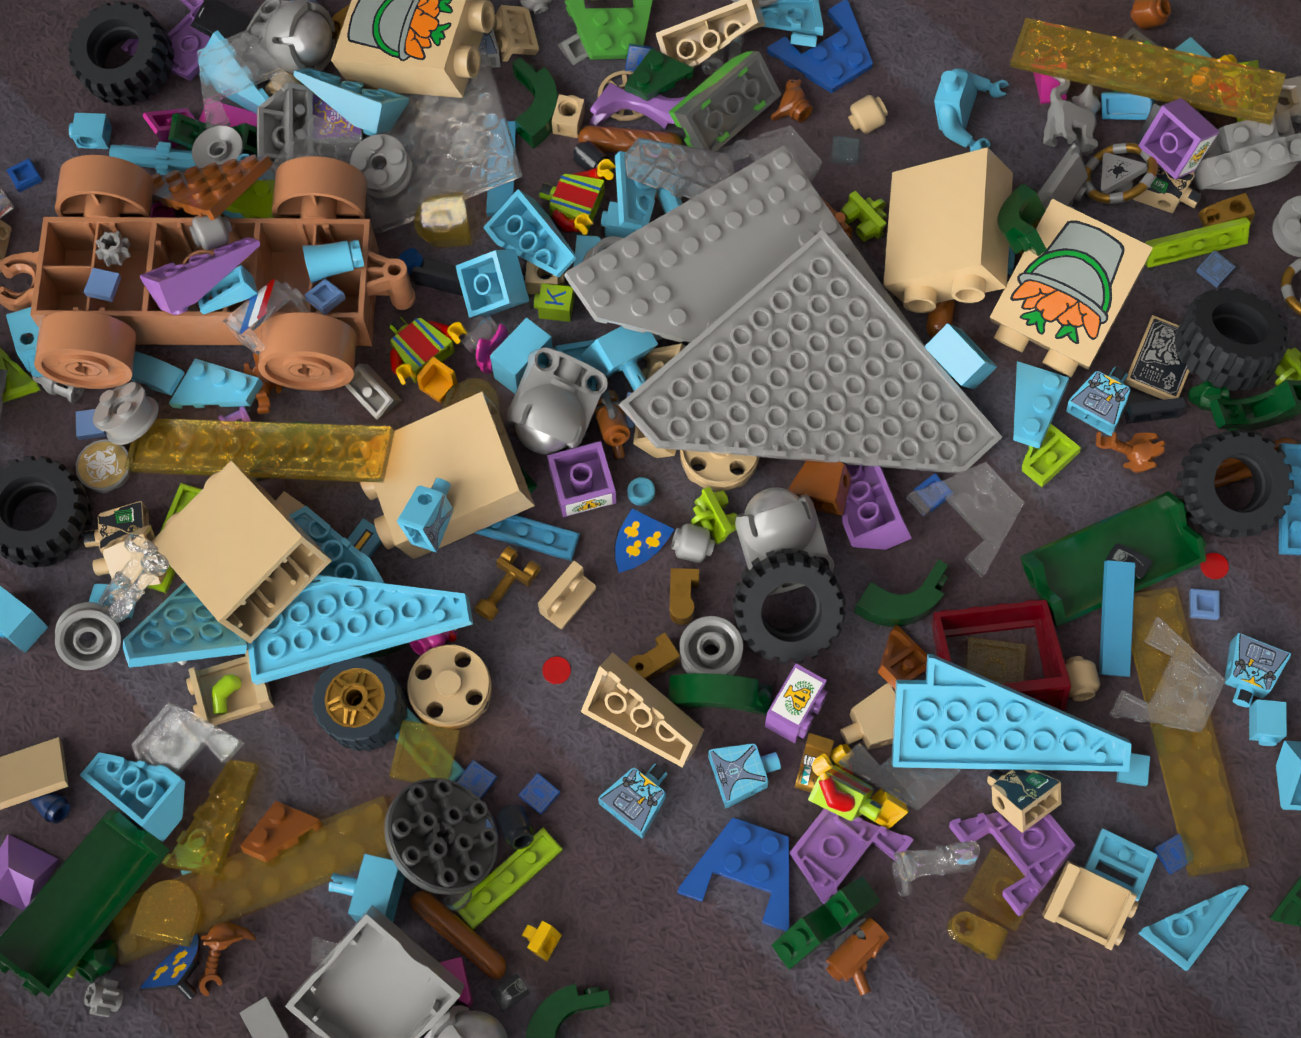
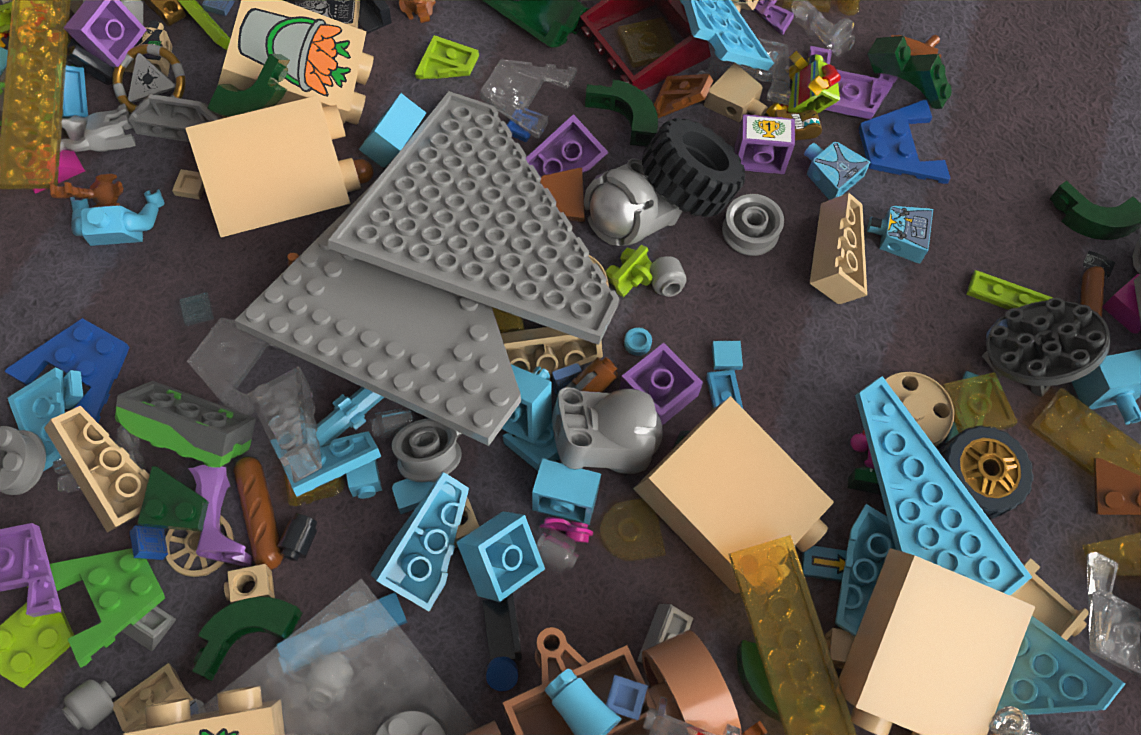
camera: 120 degrees left, 5 degrees down
(222, 690) = (1050, 614): lime arm -> none
(418, 343) = (599, 606): torso -> none
(427, 515) = (814, 465): medium azure torso -> none
(436, 379) = (625, 573): light orange panel -> none
(443, 220) = (440, 654): clear yellow tile -> none
(477, 779) = (966, 359): blue tile -> none
(487, 607) = (820, 417): pearl gold bar -> none
(515, 826) = (986, 306): black brick -> none
(539, 794) = (944, 307): blue tile -> none
(542, 939) = (1052, 252): yellow tile -> none
(554, 302) = (484, 496): lime brick -> none
(556, 670) = (835, 342): red piece -> none
(566, 596) = (773, 356): tan bracket -> none
(577, 197) = (355, 528): torso -> none
(591, 560) = (727, 355): none -> medium azure tile
(638, 539) = (687, 321): blue shield -> none
(656, 660) = (786, 265): pearl gold leg -> none
(680, 594) = (715, 268): pearl gold leg -> none
(720, 691) = (794, 201): dark green arch -> none
(793, 103) = (156, 369): dark orange animal -> none
(868, 114) = (148, 298): tan head -> none
(868, 212) = (265, 258): lime hips -> none
(999, 108) = (102, 191): none -> dark orange piece
(1036, 402) = (405, 77): medium azure wing -> none
(1101, 400) = (385, 34): torso -> none

